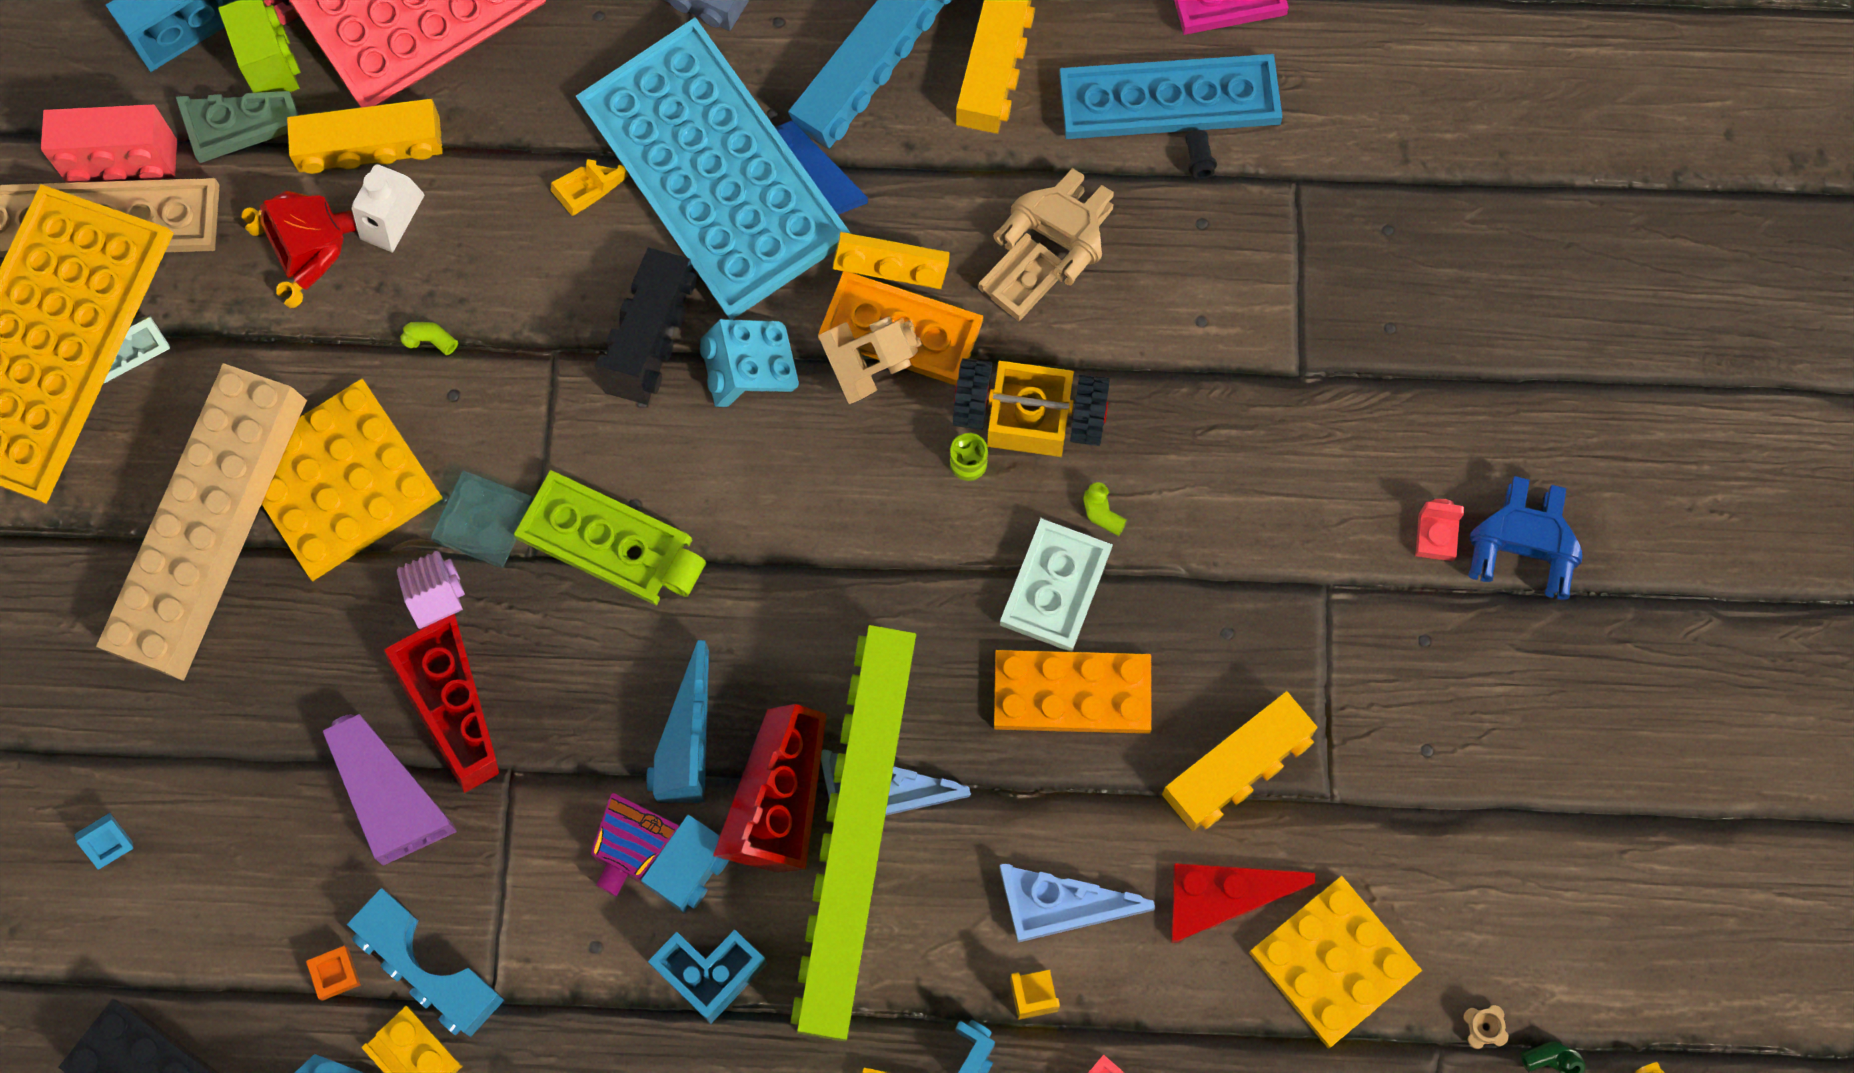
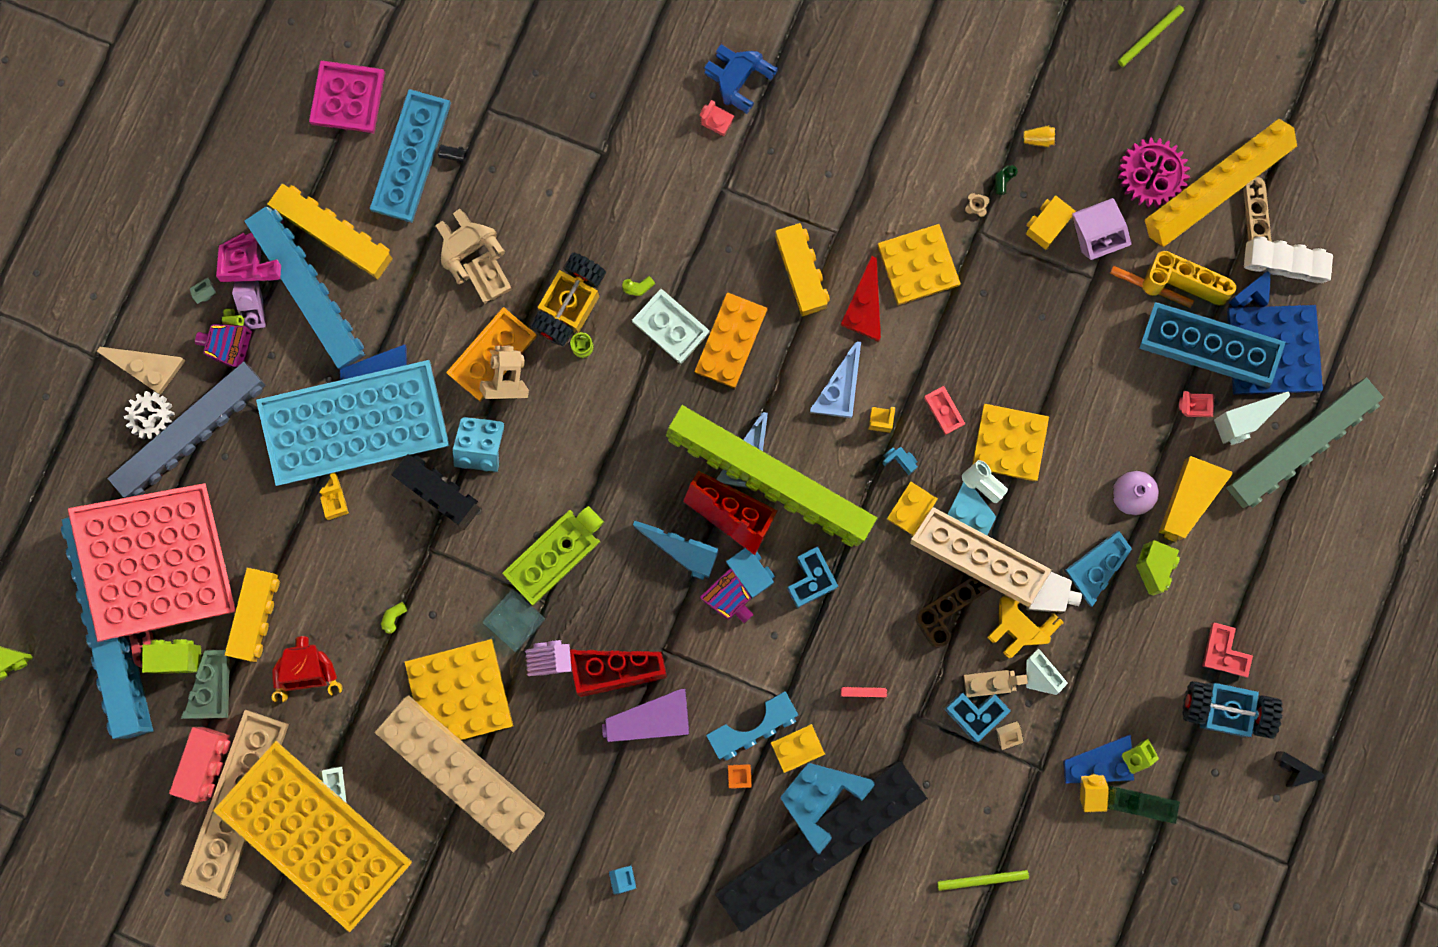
camera: 70 degrees left, 10 degrees up
(388, 201) = (304, 615): white torso -> none
(891, 260) = (451, 344): yellow plate -> none

